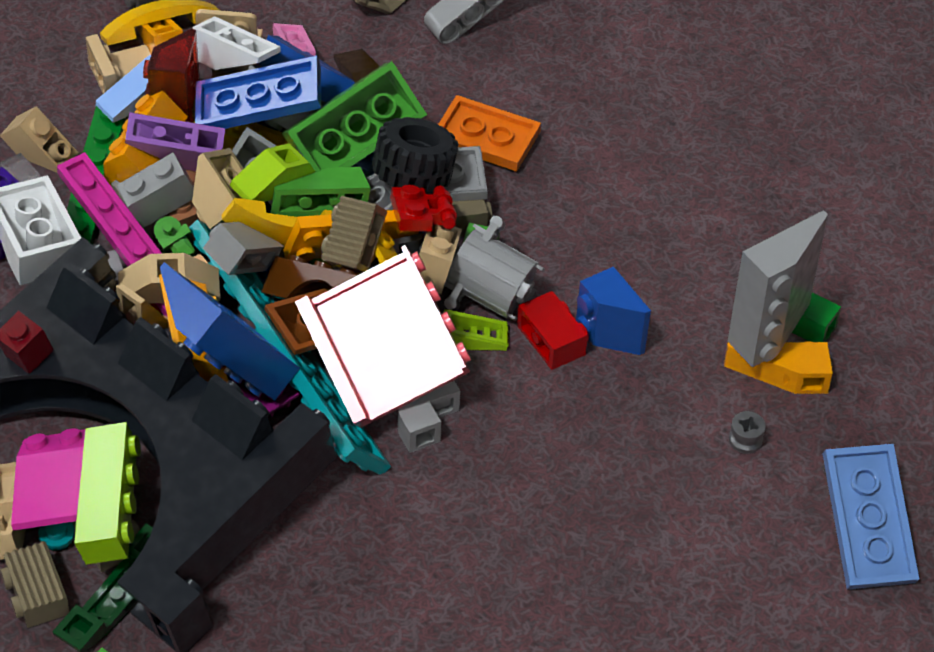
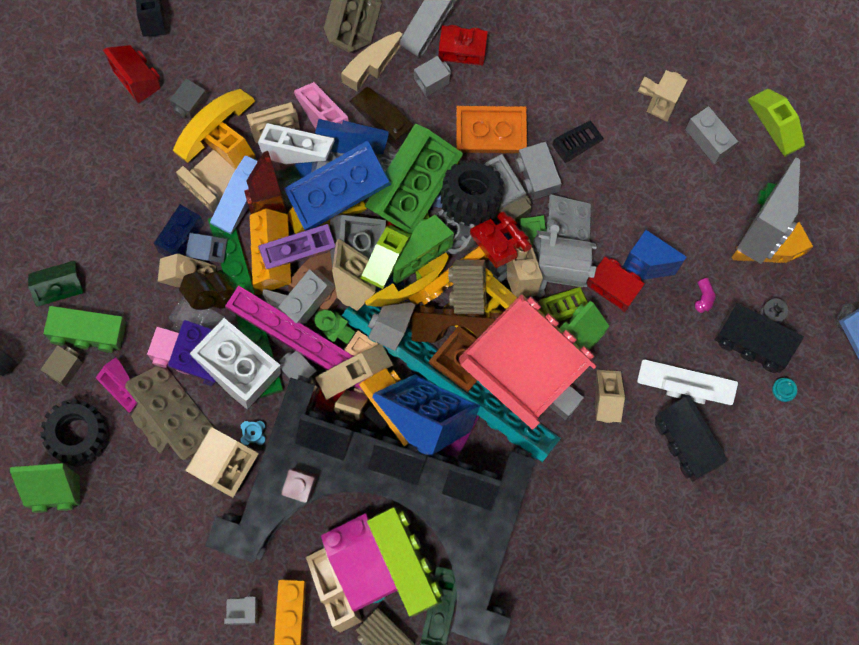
camera: 25 degrees left, 25 degrees up
(42, 154) = (207, 290): none -> dark brown brick
(58, 98) = (176, 232): none -> clear blue brick
(76, 122) = (206, 247): none -> sand blue brick
(380, 24) = (371, 61): none -> tan slope
(444, 59) = (432, 75): none -> light grey brick
(475, 441) = (609, 396): none -> tan slope
(491, 355) = (586, 325): none -> bright green slope
(498, 43) = (462, 45): none -> red brick
(520, 189) = (538, 170): none -> light grey brick
(537, 243) = (571, 217): none -> light grey hinge
(555, 518) = (690, 439): none -> black slope
(572, 185) = (566, 154): none -> black slope
(590, 465) = (687, 382): none -> white bracket
(665, 389) = (707, 298): none -> dark pink arm
(707, 443) = (758, 338): none -> black slope
(718, 520) = (784, 389): none -> teal plate
(719, 161) = (664, 95): none -> tan brick
(757, 216) = (711, 135): none -> light grey brick
(858, 243) = (779, 120): none -> lime slope

